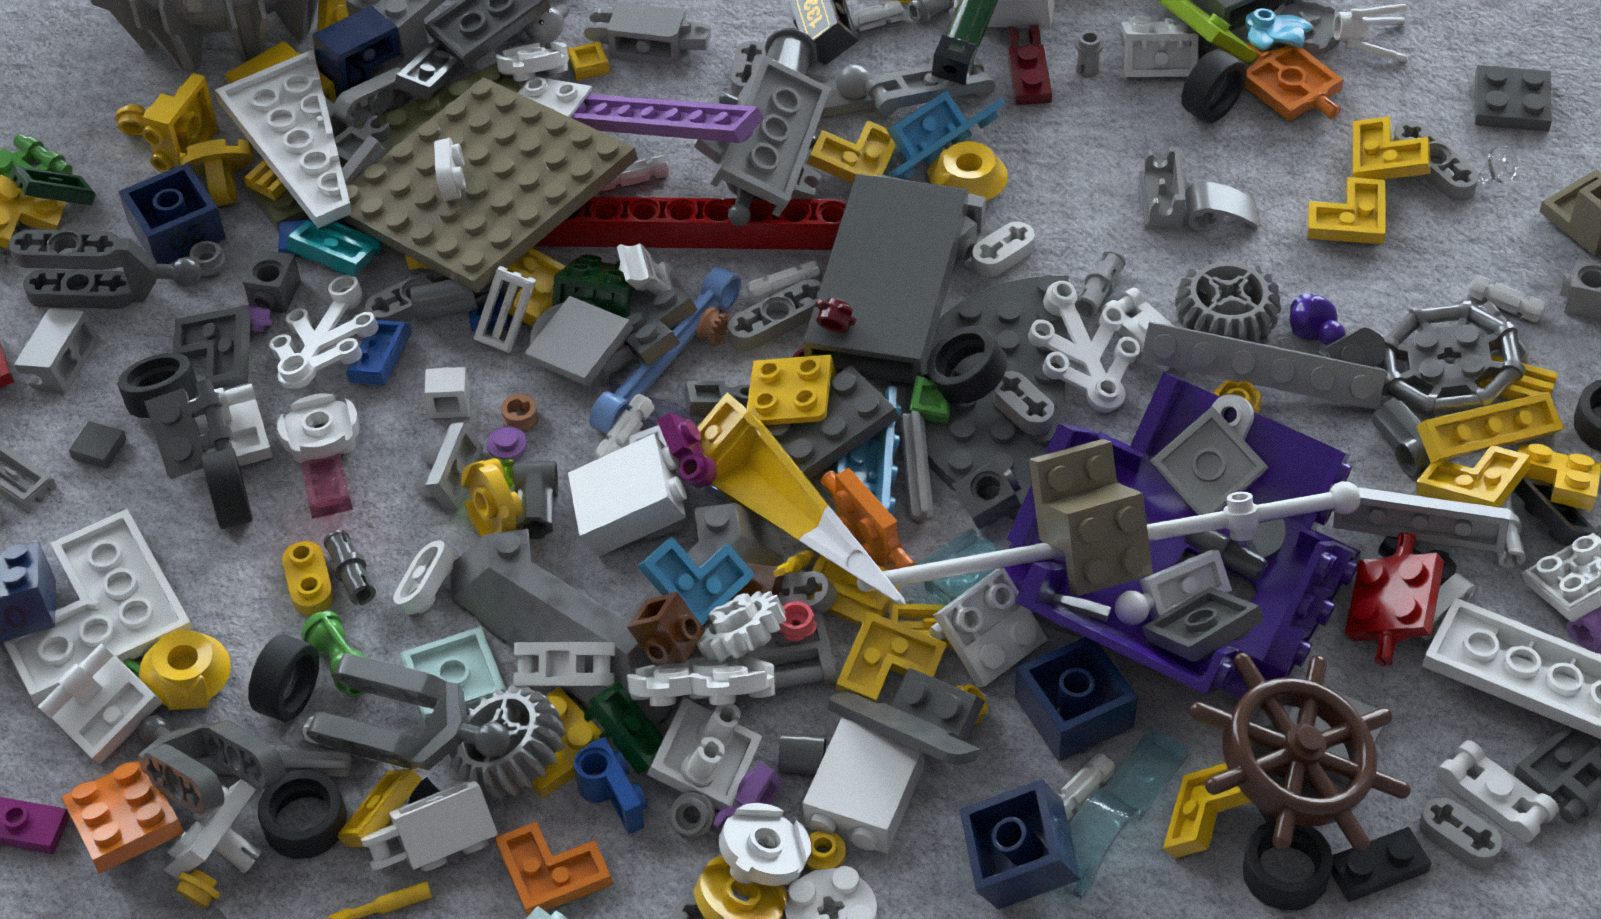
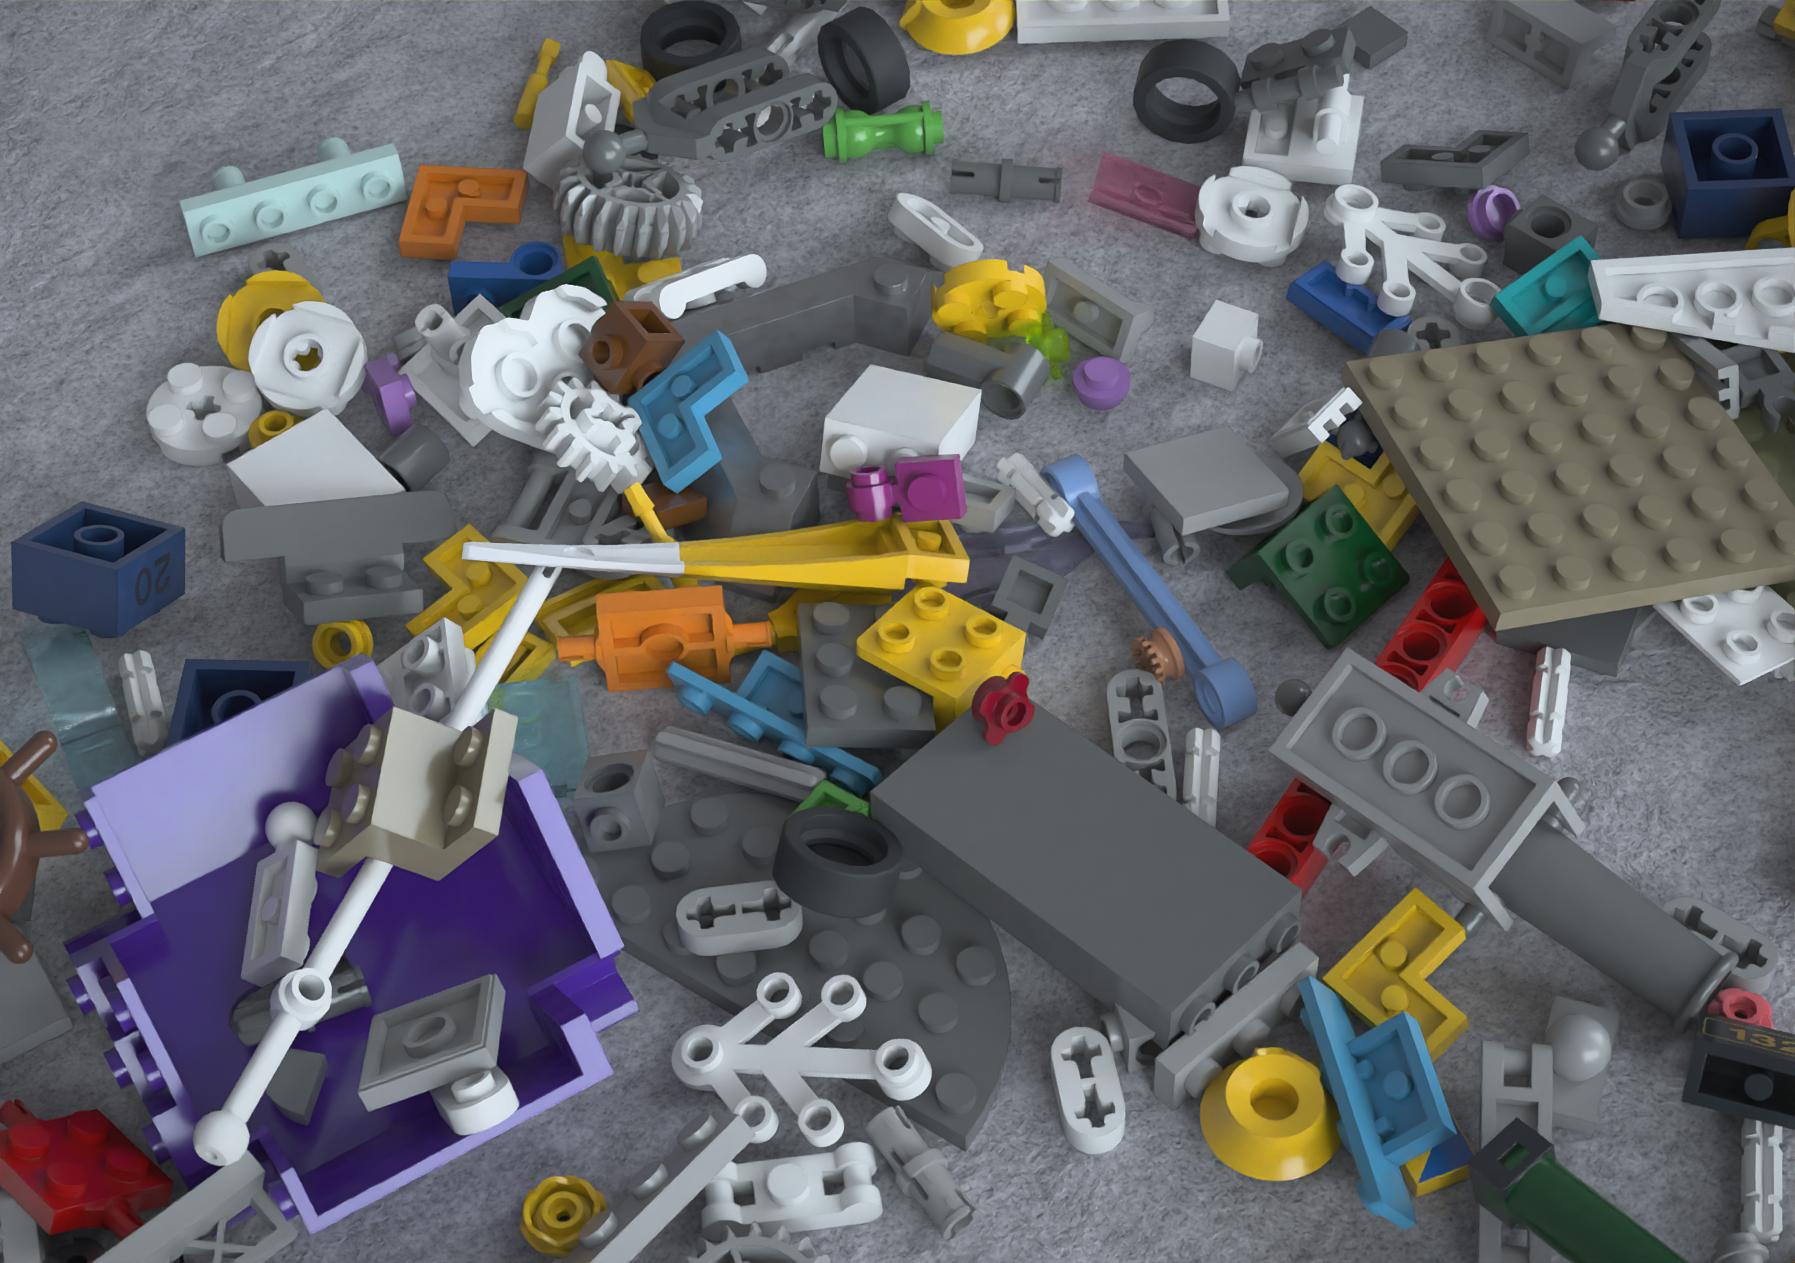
camera: 120 degrees right, 0 degrees up
(154, 378) = (1403, 109): black tyre -> none
(305, 575) = (1026, 146): yellow plate -> none
(448, 168) = (1583, 394): white plate -> none
(458, 660) = (786, 224): light aqua tile -> none
(523, 403) = (1151, 426): nougat bush -> none
(642, 271) = (1296, 579): white piece -> none
(652, 326) = (1195, 573): dark grey plate -> none
(669, 118) = (1539, 662): medium lavender plate -> none
(797, 613) = (576, 508): coral plate -> none
(1203, 624) = (191, 873): dark grey plate -> none

